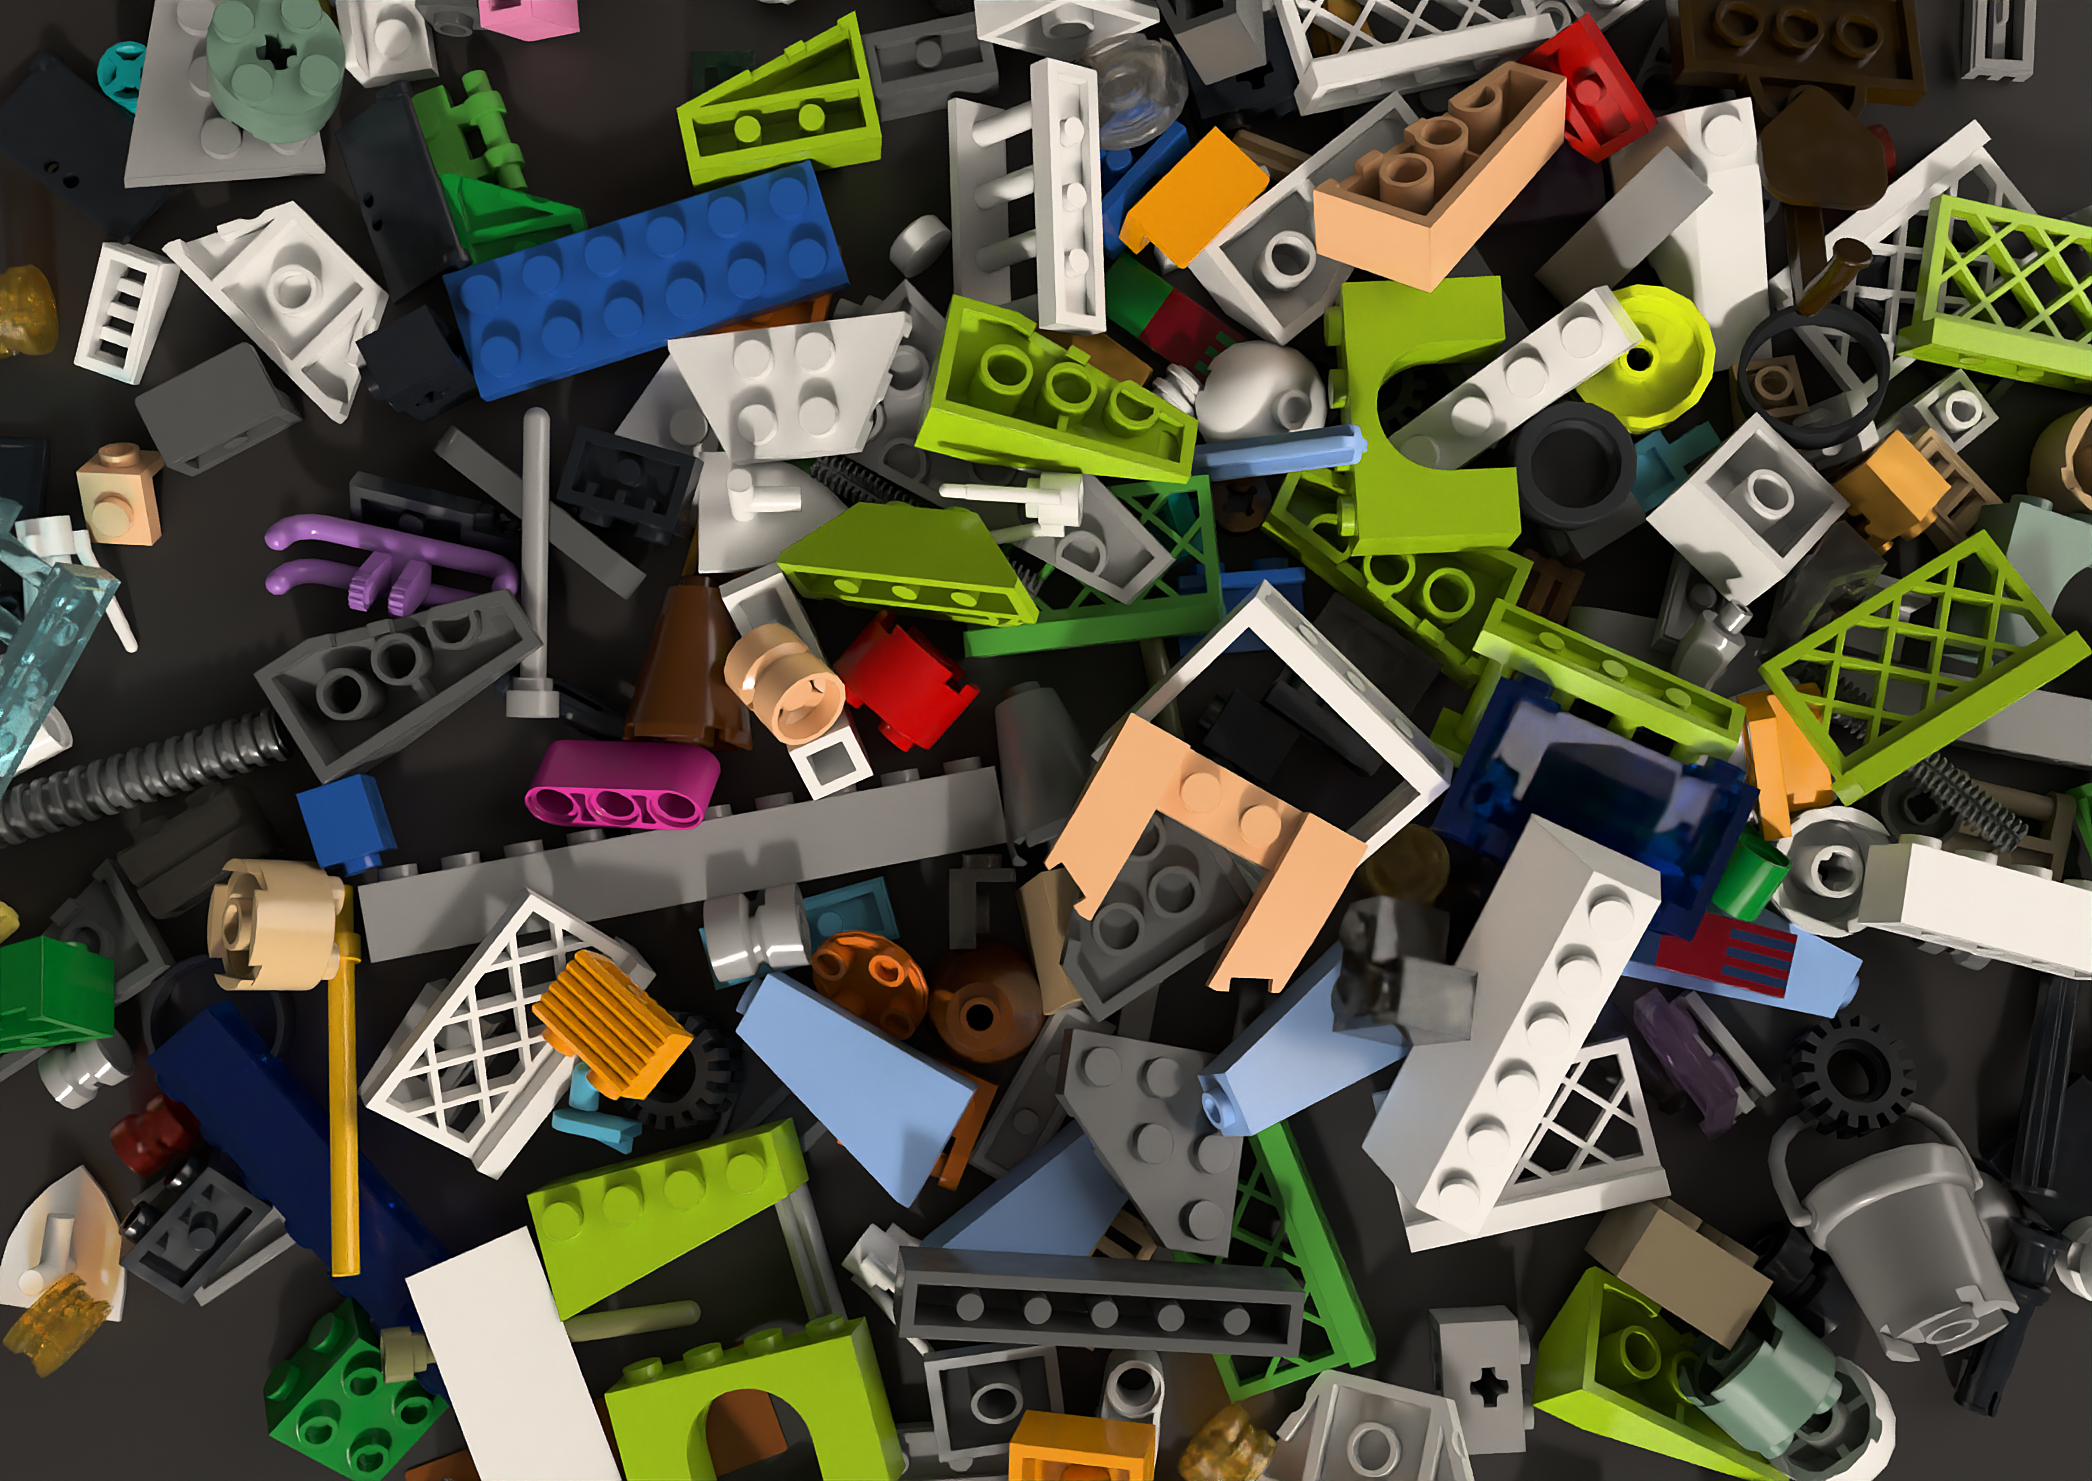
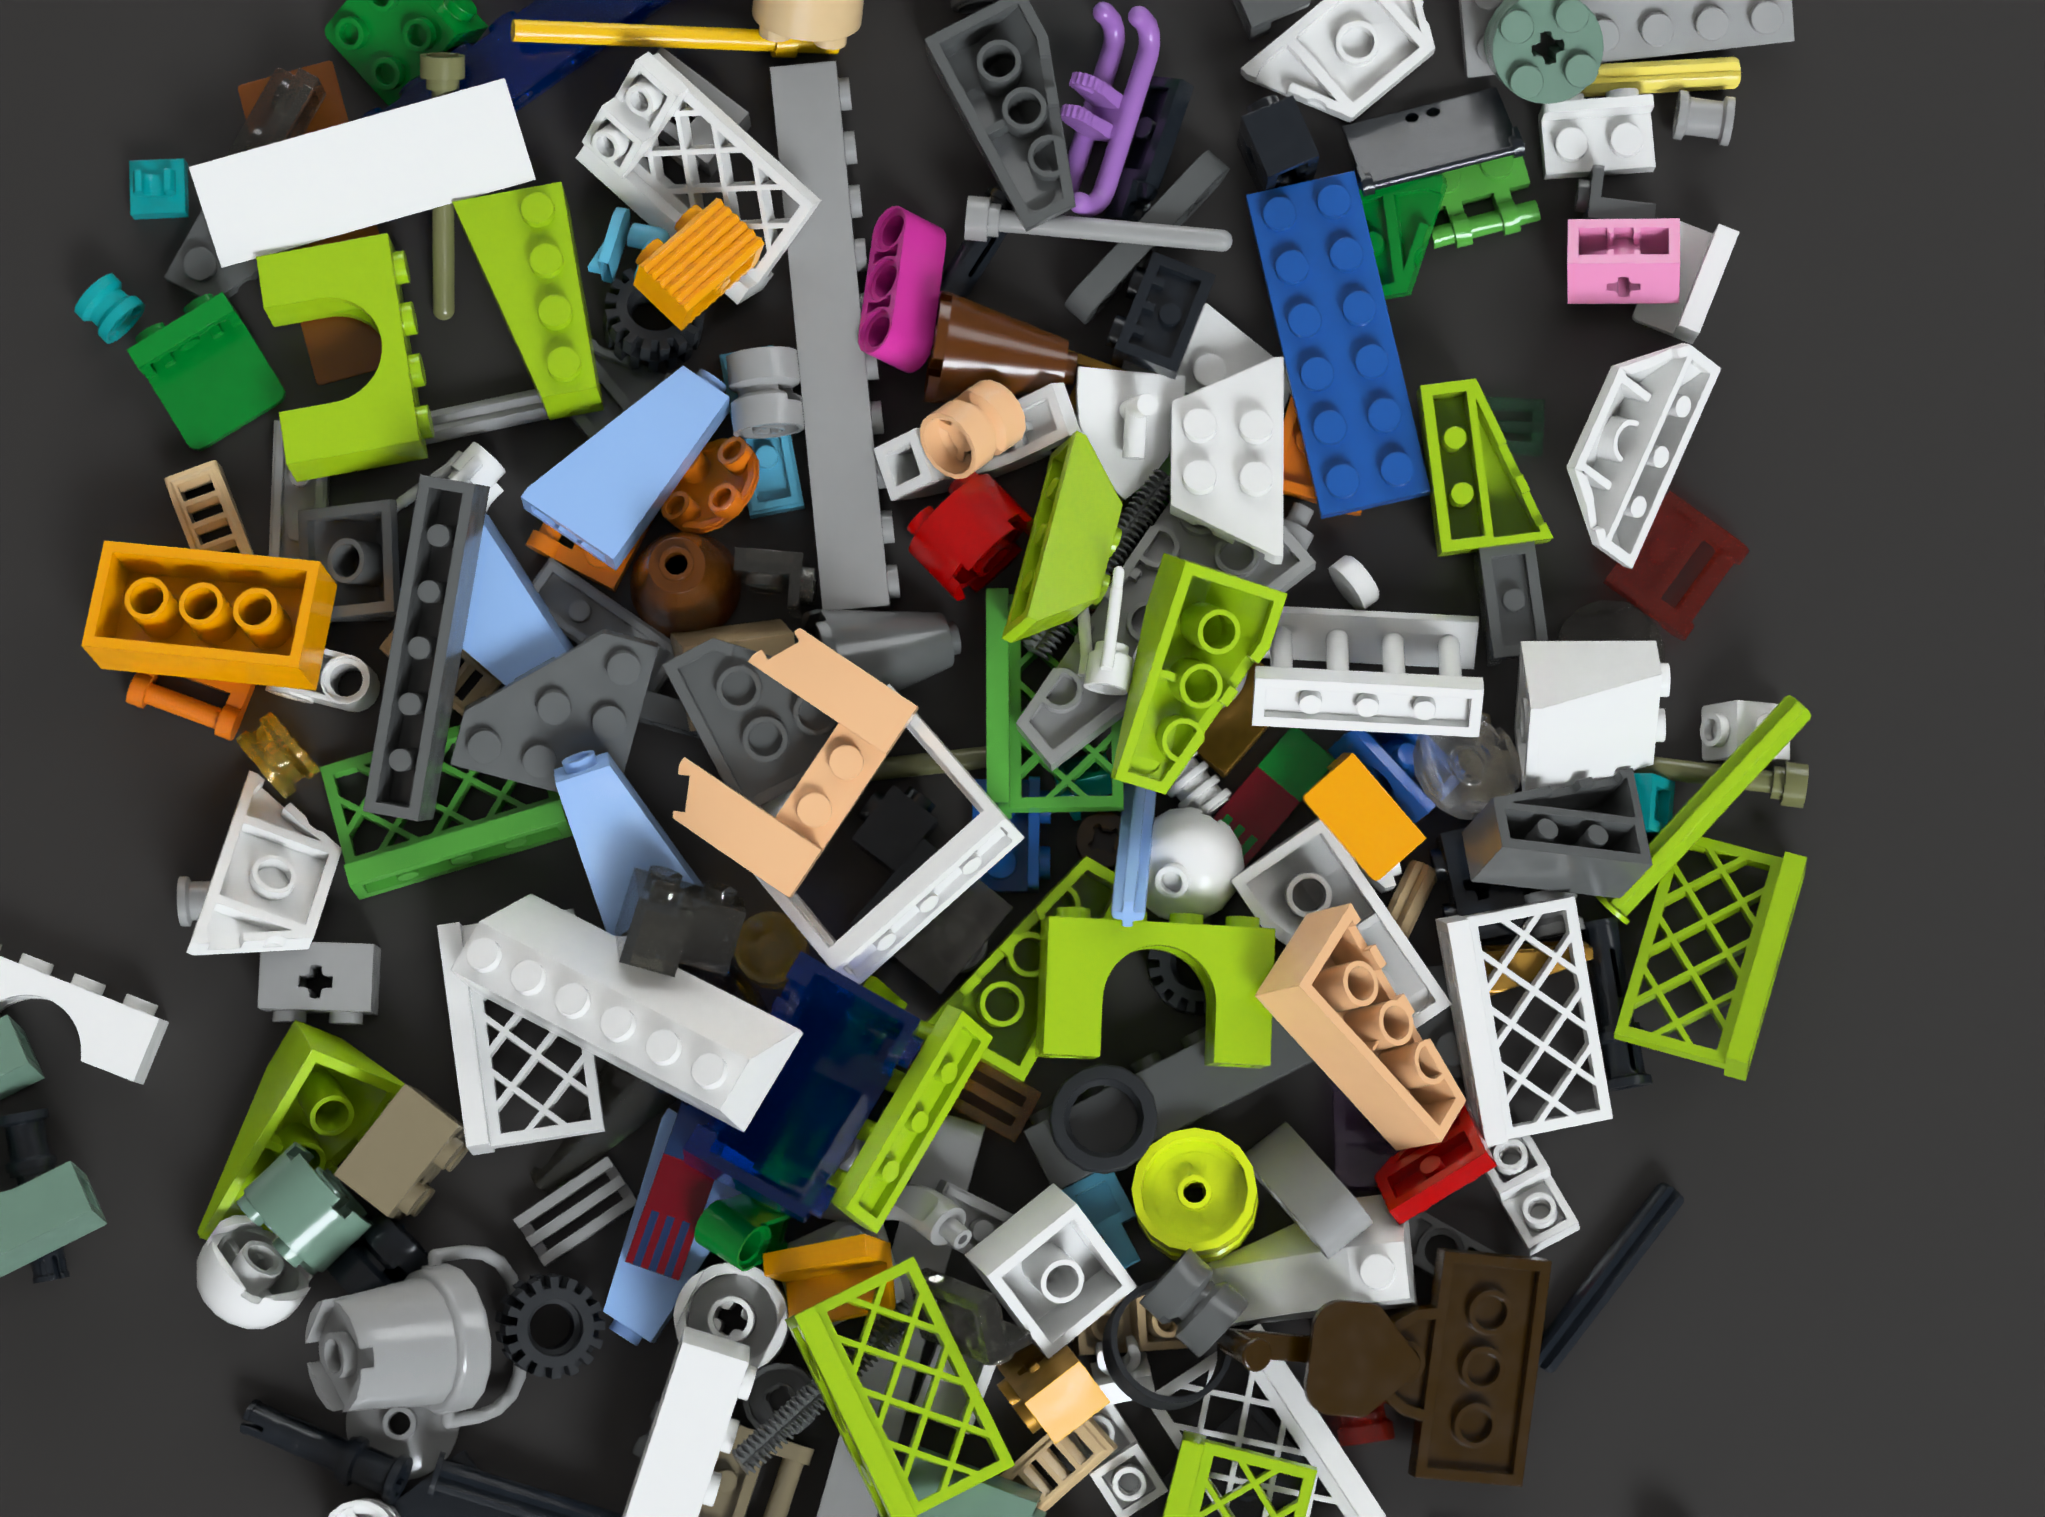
camera: 90 degrees right, 5 degrees down
(347, 824) = (889, 56): blue brick -> none
(439, 1115) = (636, 114): none -> white slope
(1520, 383) = (1174, 1074): white arch -> none
(1705, 1078) = (565, 1184): clear purple wing -> none
(1783, 333) = (1194, 1303): none -> dark grey wheel

